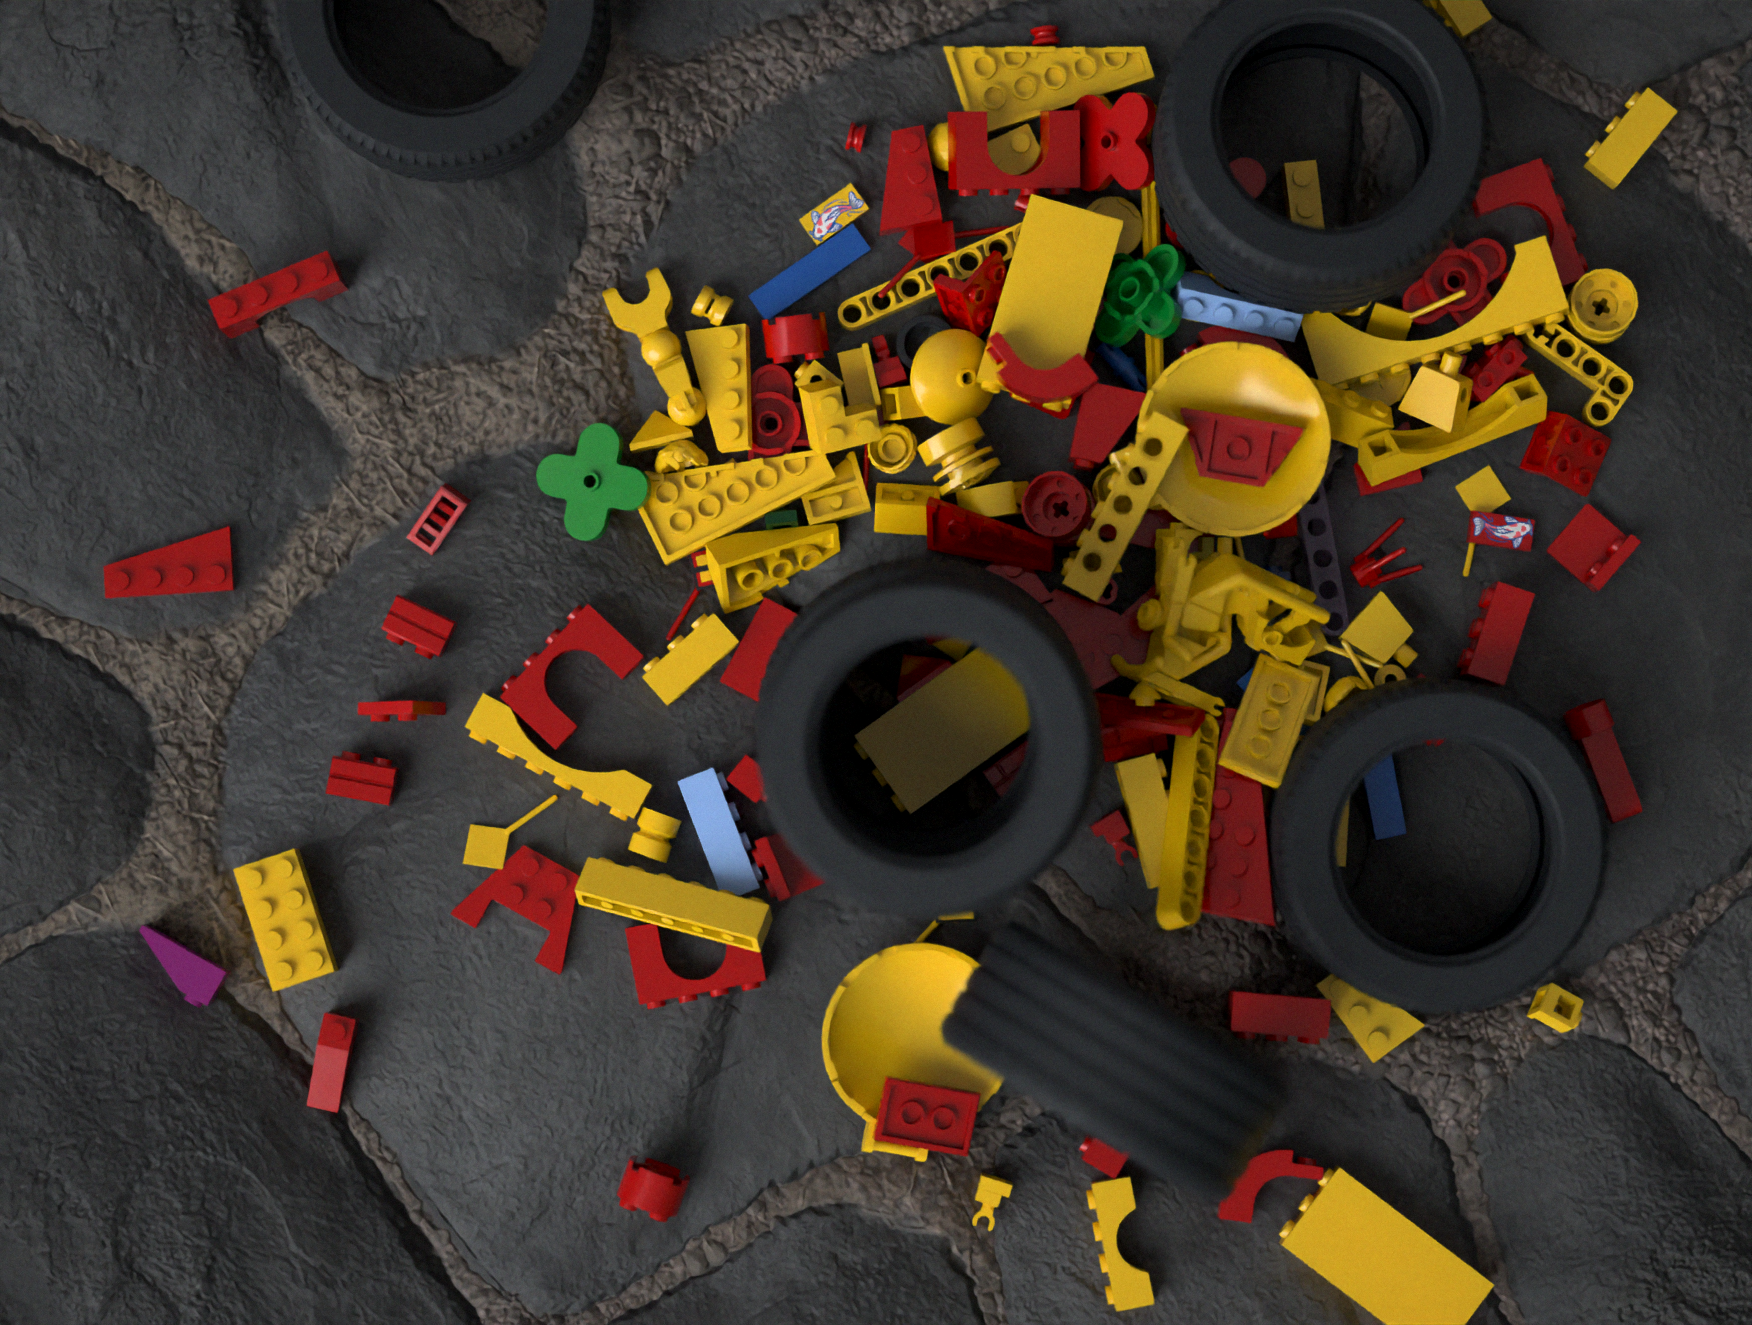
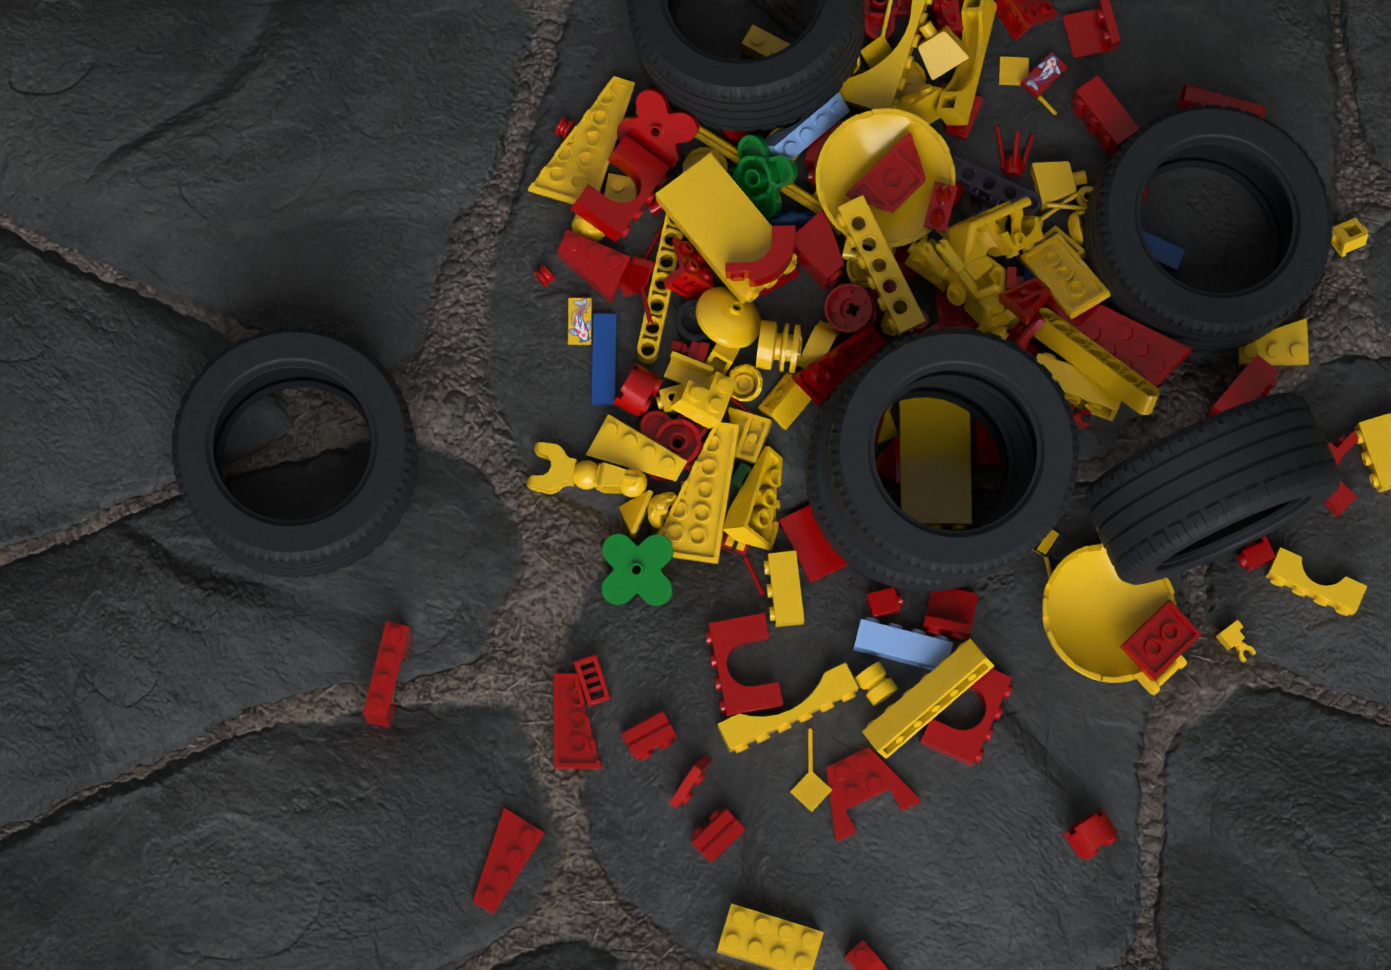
camera: 55 degrees left, 10 degrees down
(365, 539) = (571, 726): none -> red wing
(718, 310) = (587, 425): yellow wheel -> none
(1206, 696) = (1025, 299): none -> red wing
(1222, 669) = (1012, 279): none -> red slope
(1242, 524) = (940, 206): none -> red tile

